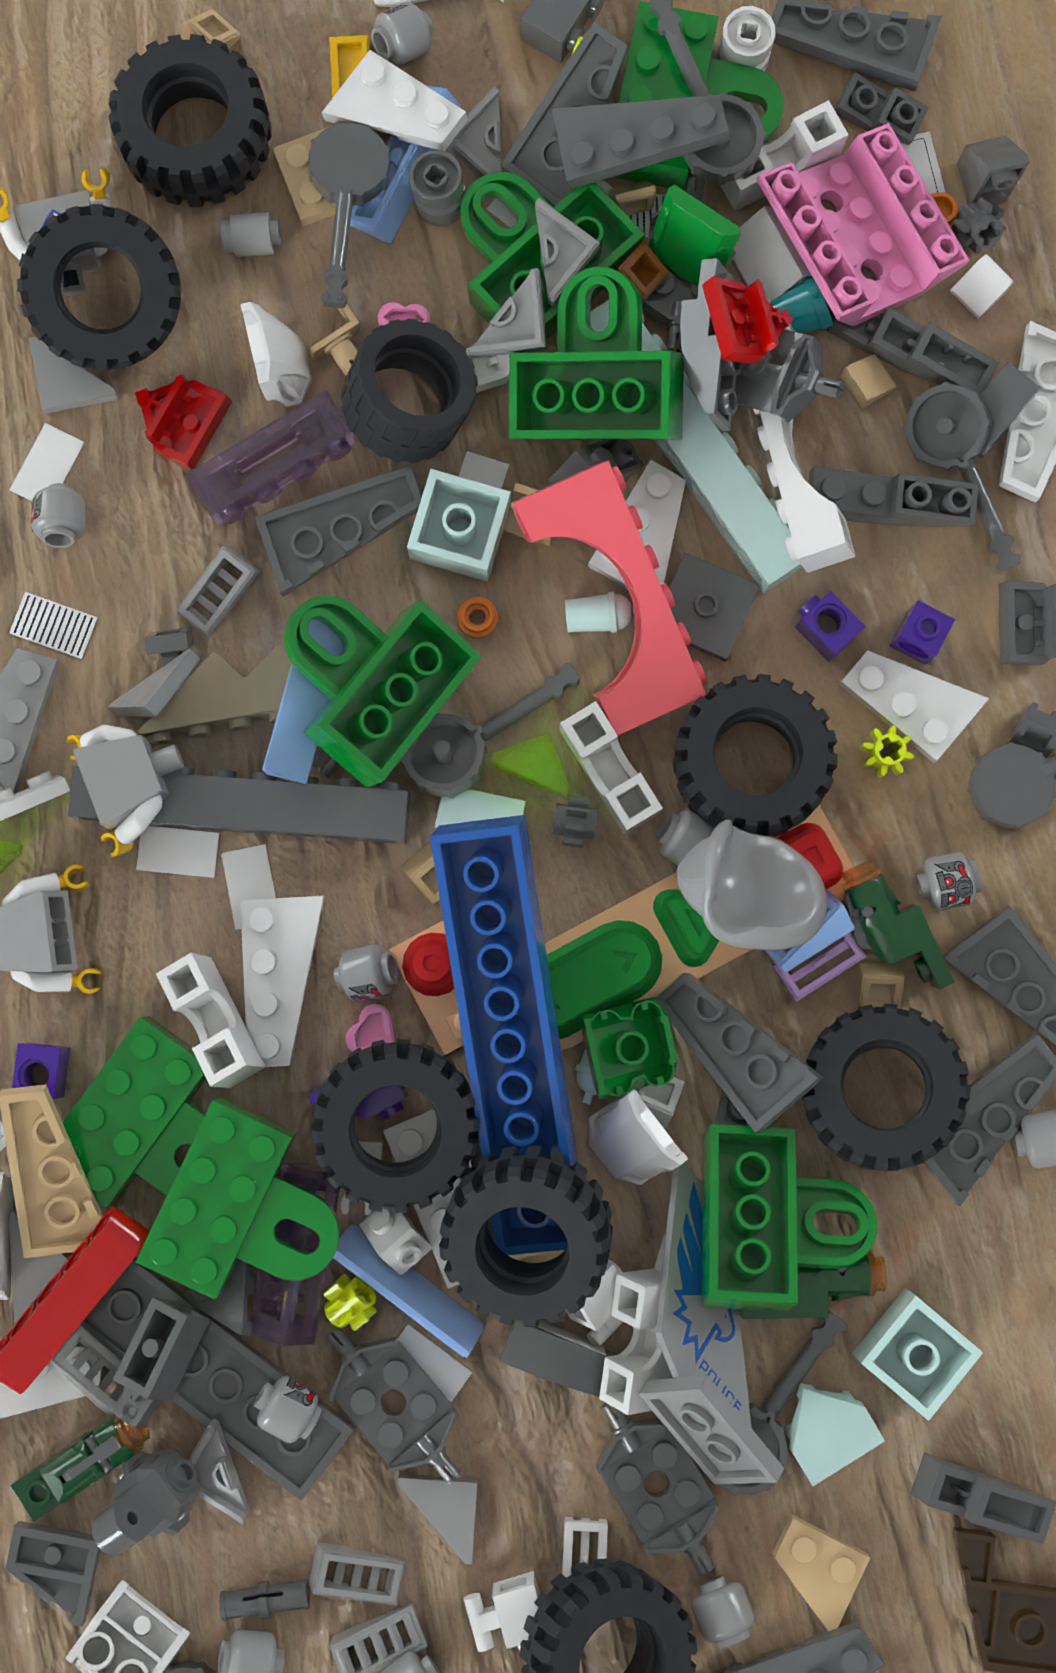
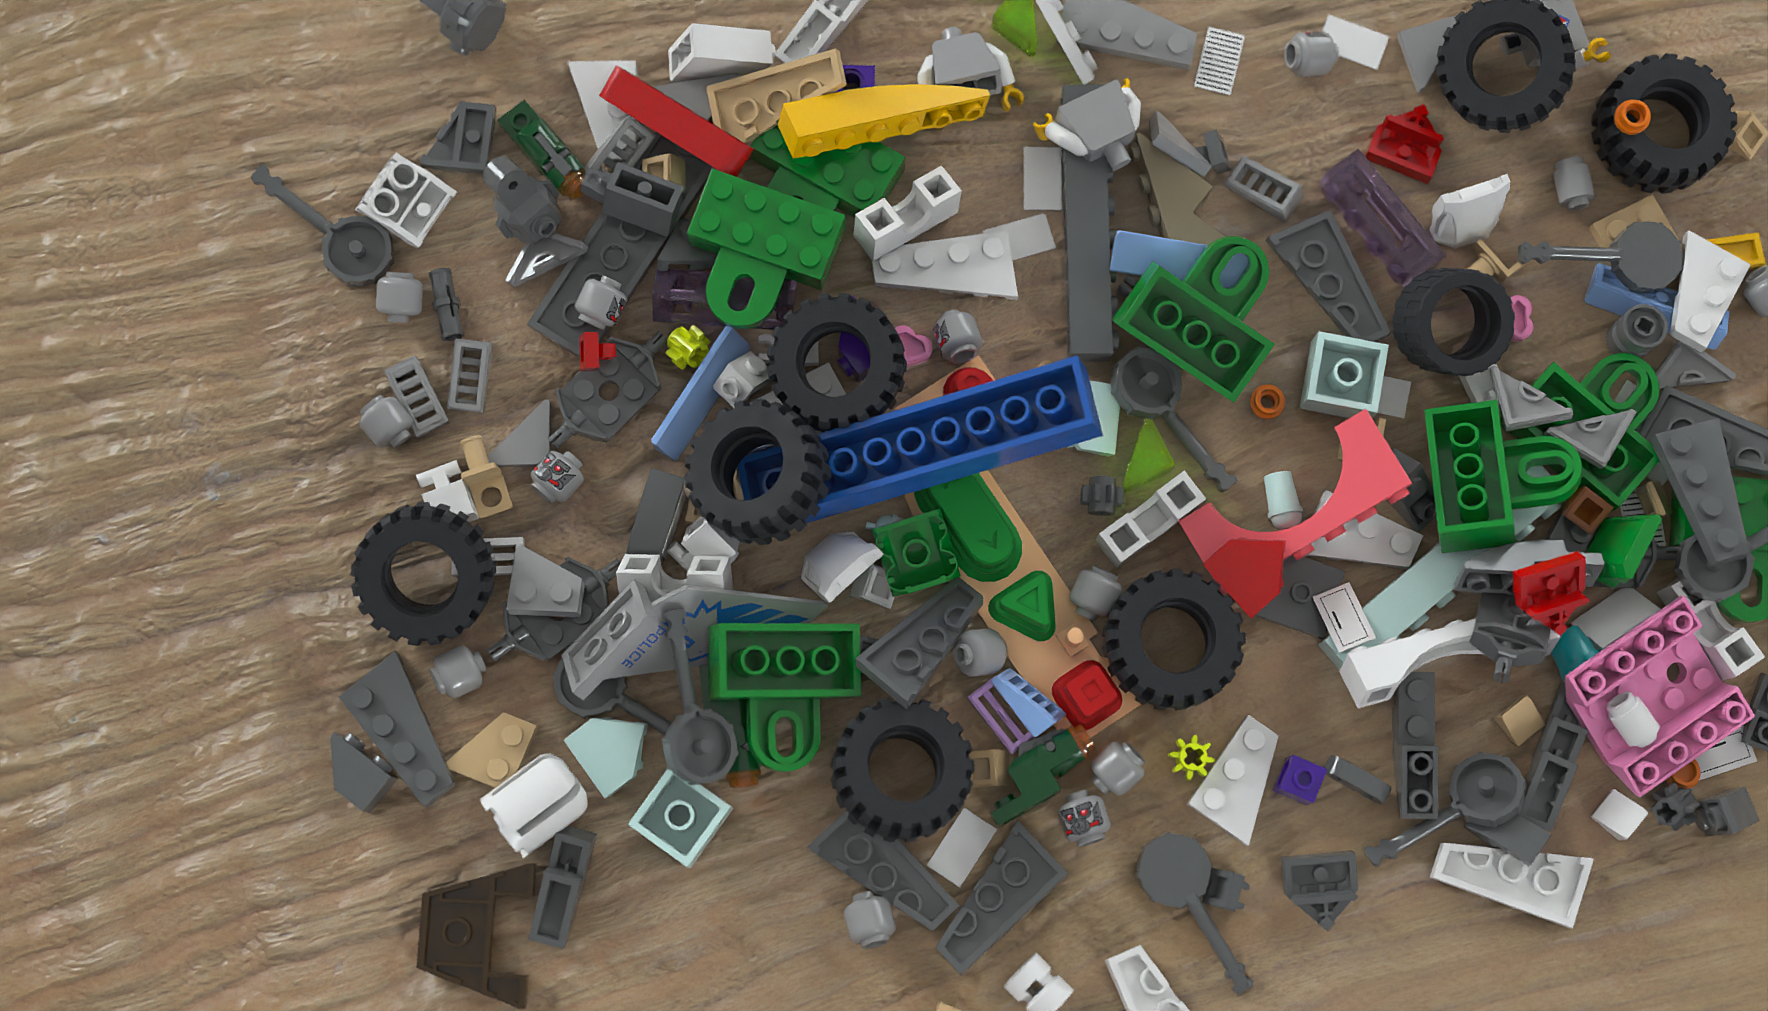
camera: 85 degrees right, 5 degrees down
(84, 1053) = (874, 114): none -> yellow slope
(124, 1314) = (667, 167): none -> tan slope
(181, 140) = (1638, 110): none -> orange plate
(348, 1424) = (592, 351): none -> red tile
(439, 1366) = (639, 427): white sticker -> none
(486, 1567) = (483, 476): none -> tan bracket
(496, 1475) = (557, 476): none -> light grey head
(633, 1503) = (543, 587): none -> light grey wing
(688, 661) = (1249, 571): none -> red slope
(744, 559) = (1344, 617): none -> white sticker
(749, 982) = (980, 652): none -> light grey head
(753, 890) = (1060, 635): light grey piece -> none
(841, 1328) = (700, 742): none -> dark grey piece
(847, 625) = (1282, 706): dark purple brick -> none
(887, 254) = (1632, 719): none -> white brick
(892, 1529) = (536, 803): none -> white cylinder
(893, 836) = (1117, 768): none -> light grey head
(924, 568) = (1357, 779): none -> dark grey beam
(967, 1023) = (961, 847): none -> white sticker

